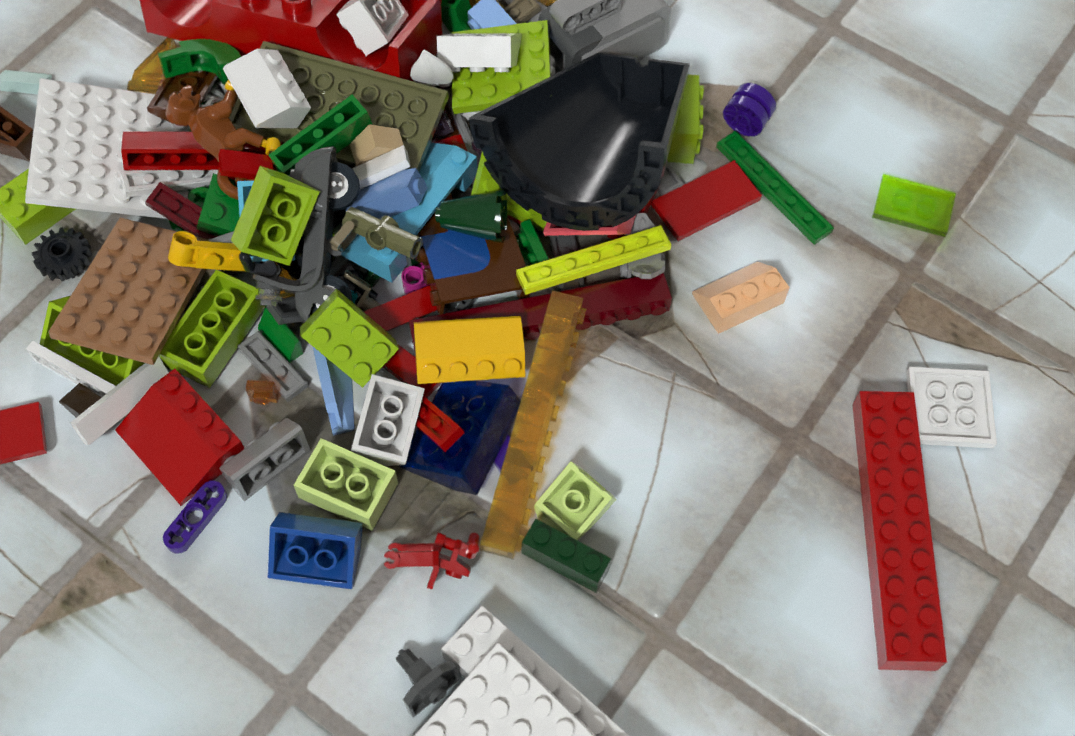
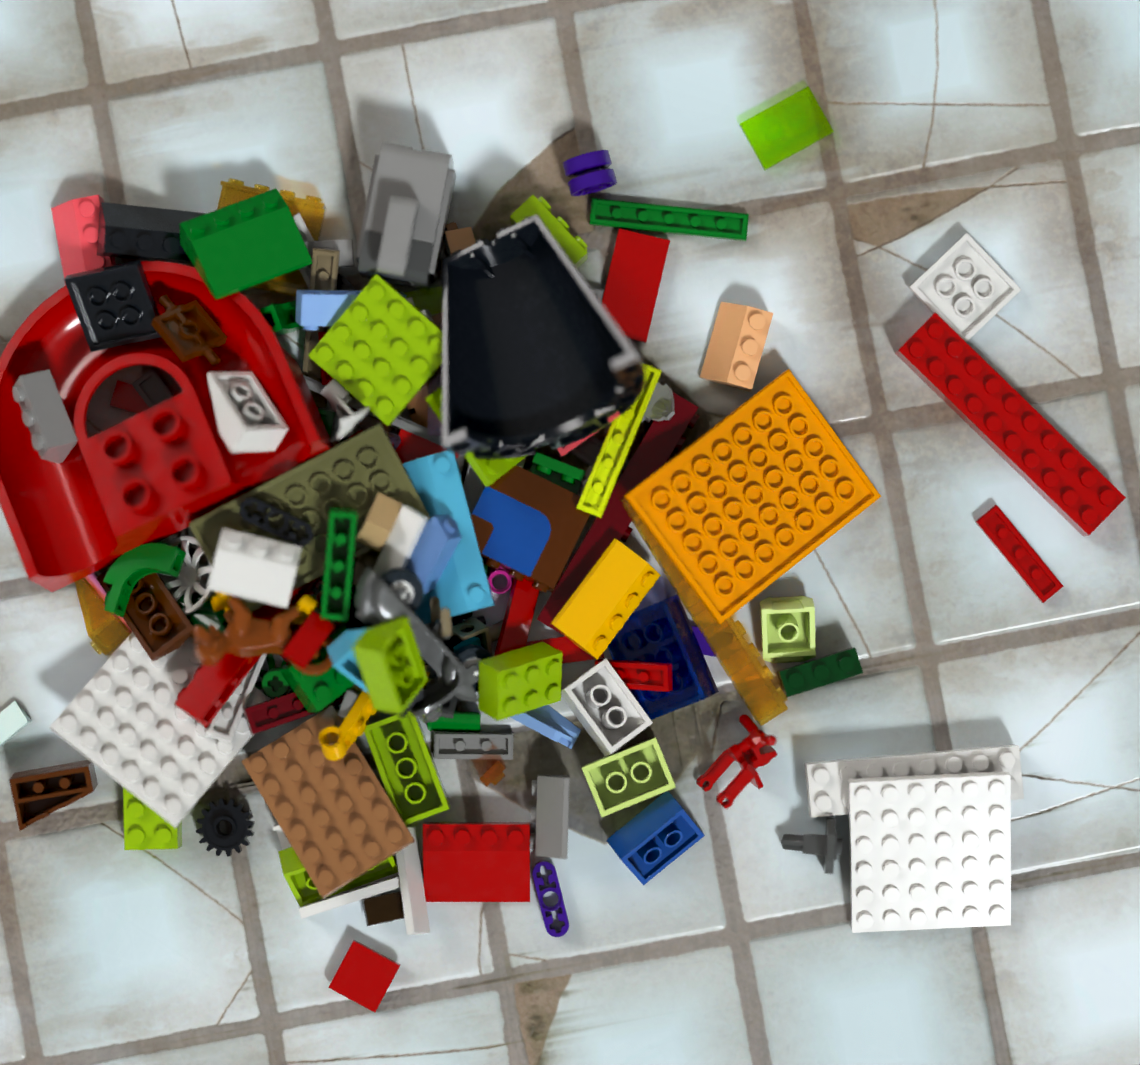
camera: 45 degrees left, 25 degrees up
(308, 78) = (261, 505): none -> black beam
(383, 233) = (466, 589): olive piece -> none
(475, 215) = (507, 499): dark green cone -> none
(479, 51) = (360, 361): white slope -> none
(647, 385) = (752, 496): none -> light orange tile
(812, 630) = (1019, 553): none -> red tile

